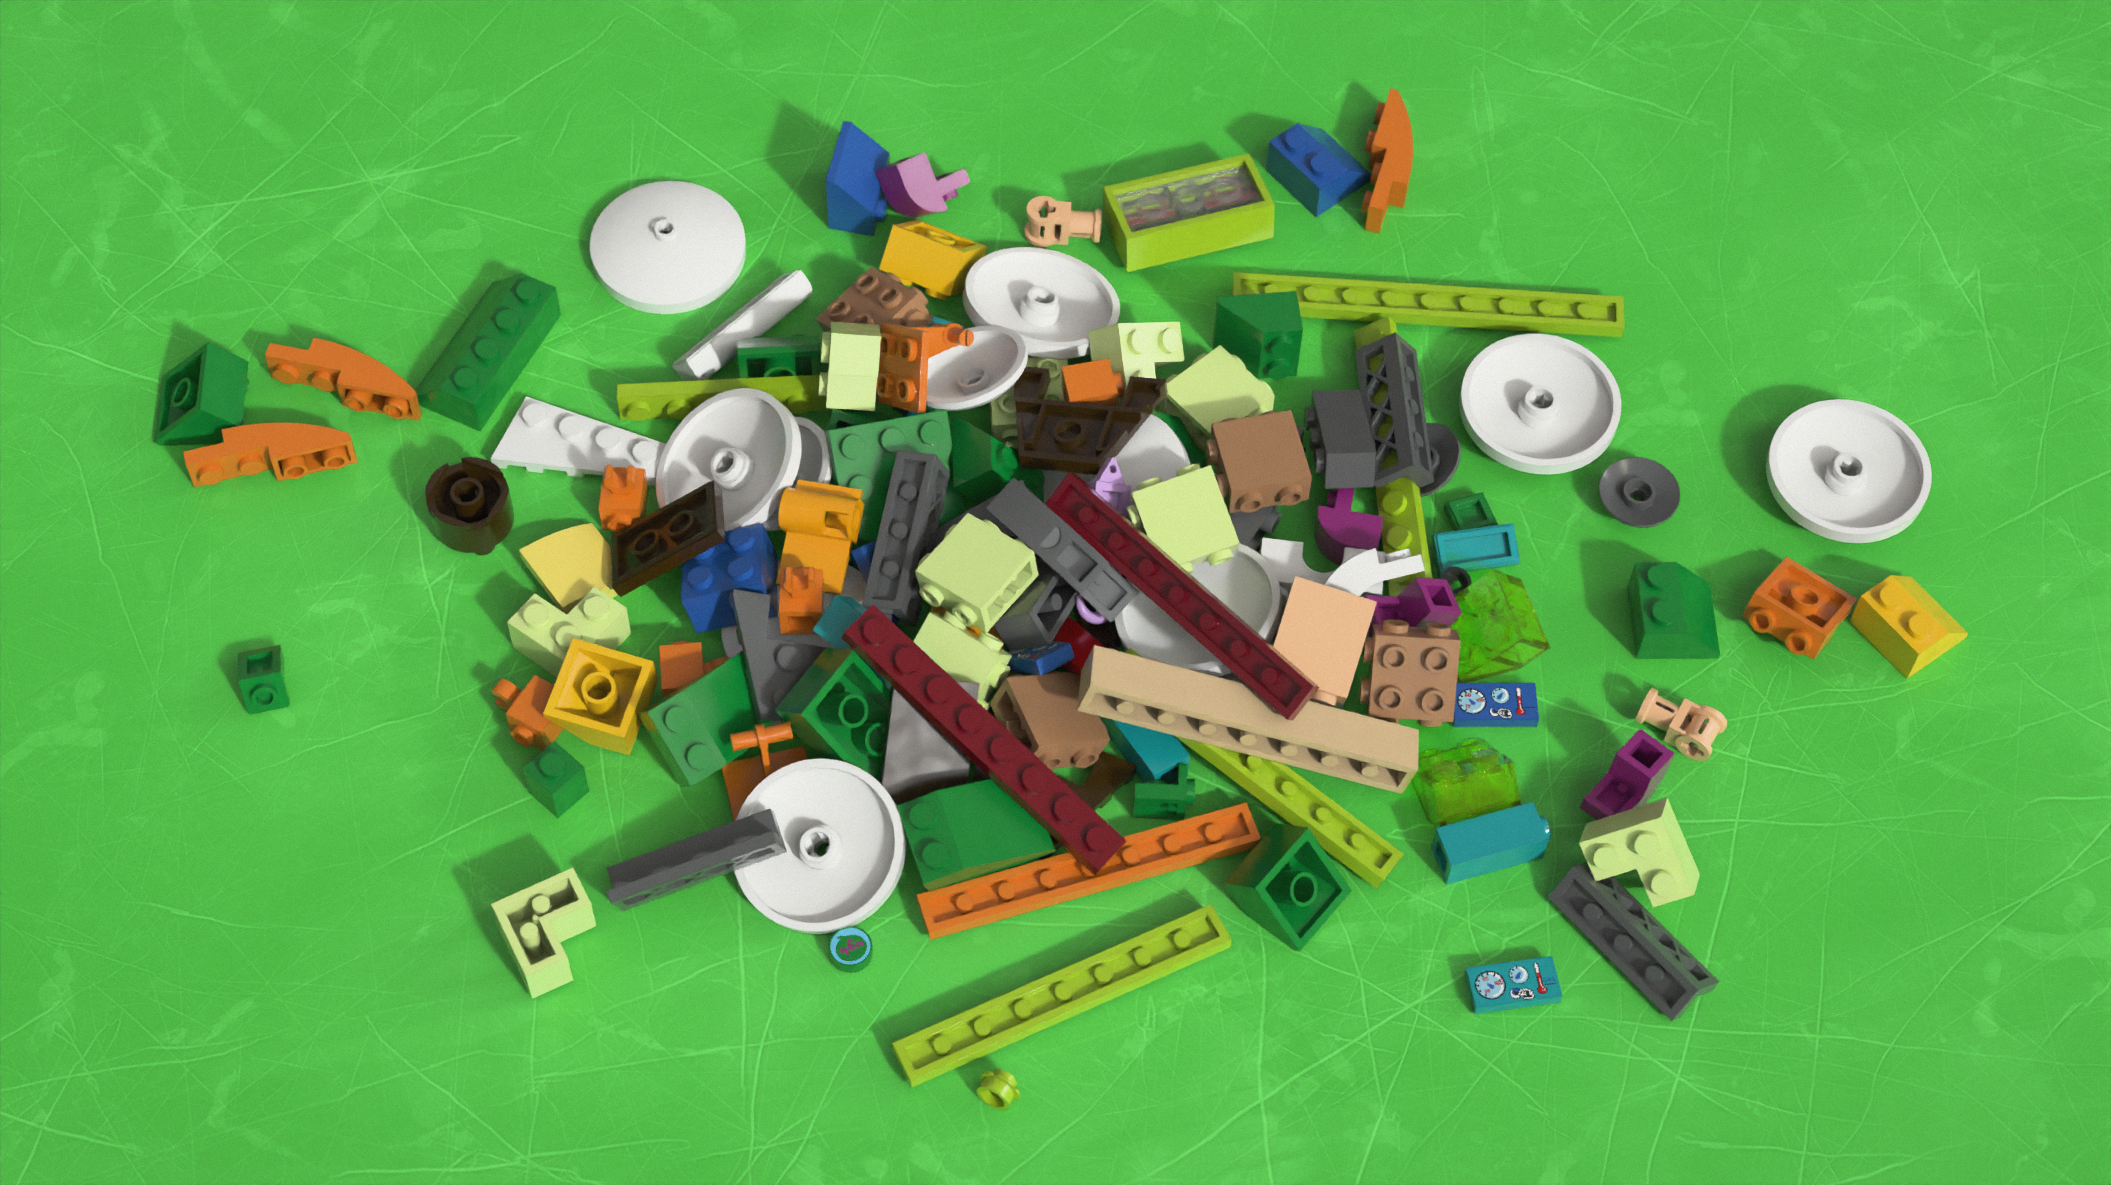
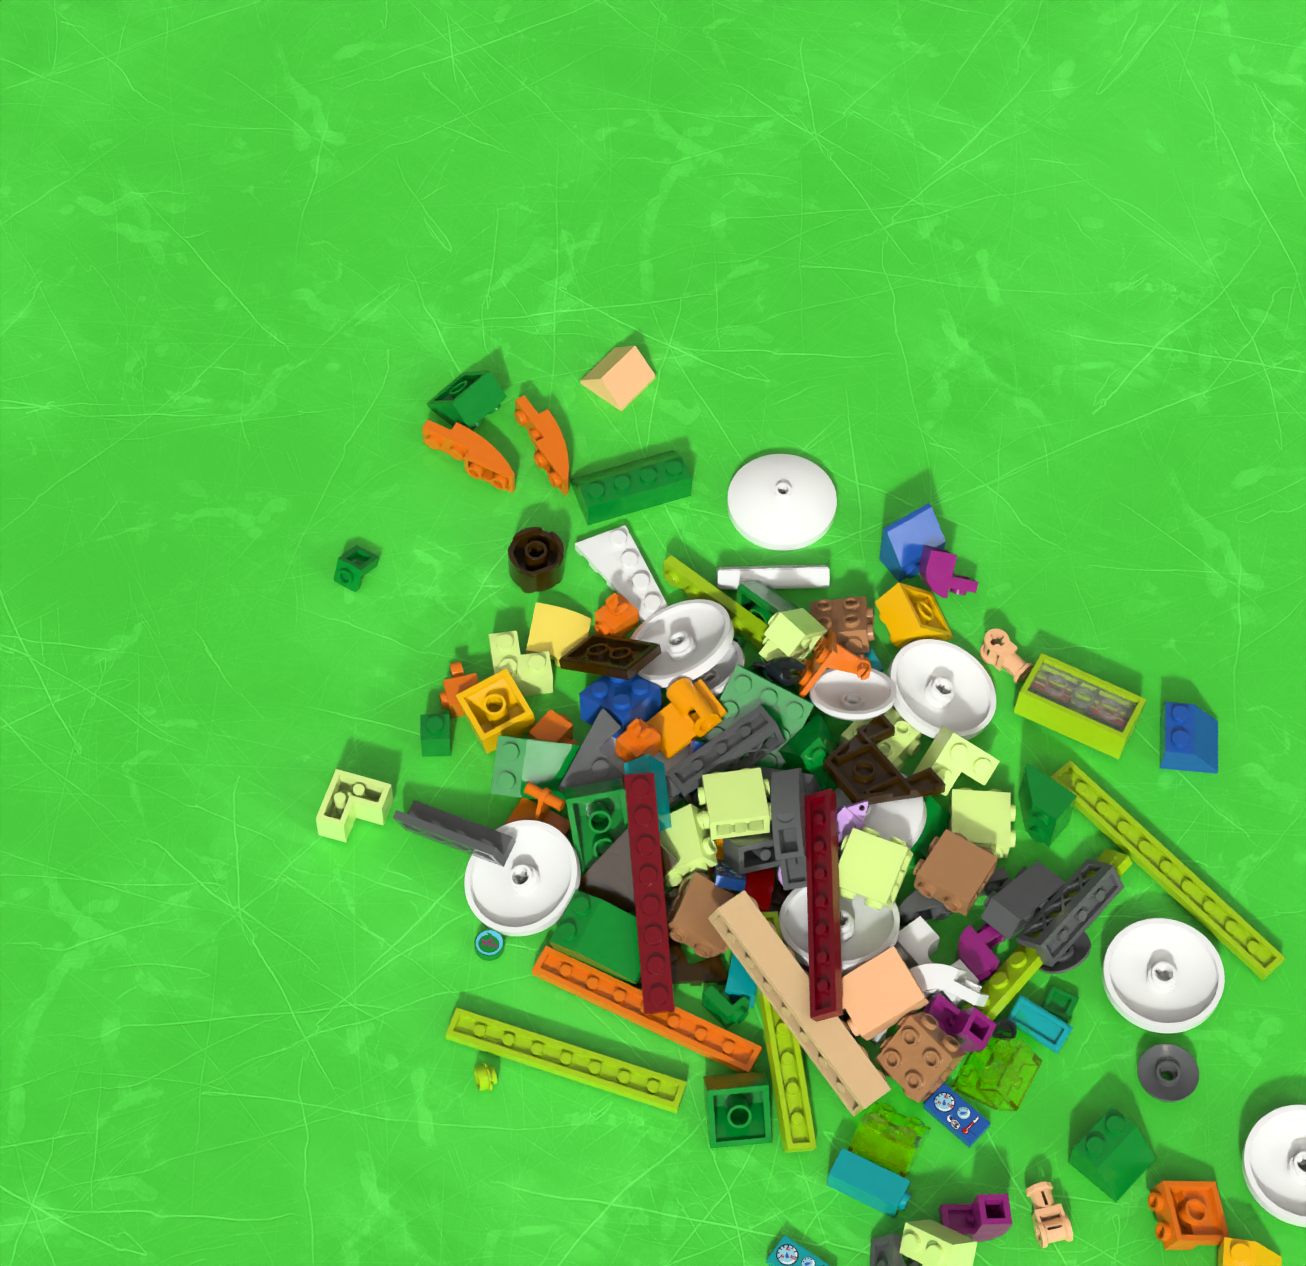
camera: 45 degrees right, 0 degrees up
(349, 249) = (619, 376): none -> light nougat slope
(871, 405) = (778, 669): none -> black hand
(1092, 383) = (907, 755): orange brick -> none
(1389, 159) = (1238, 768): orange slope -> none

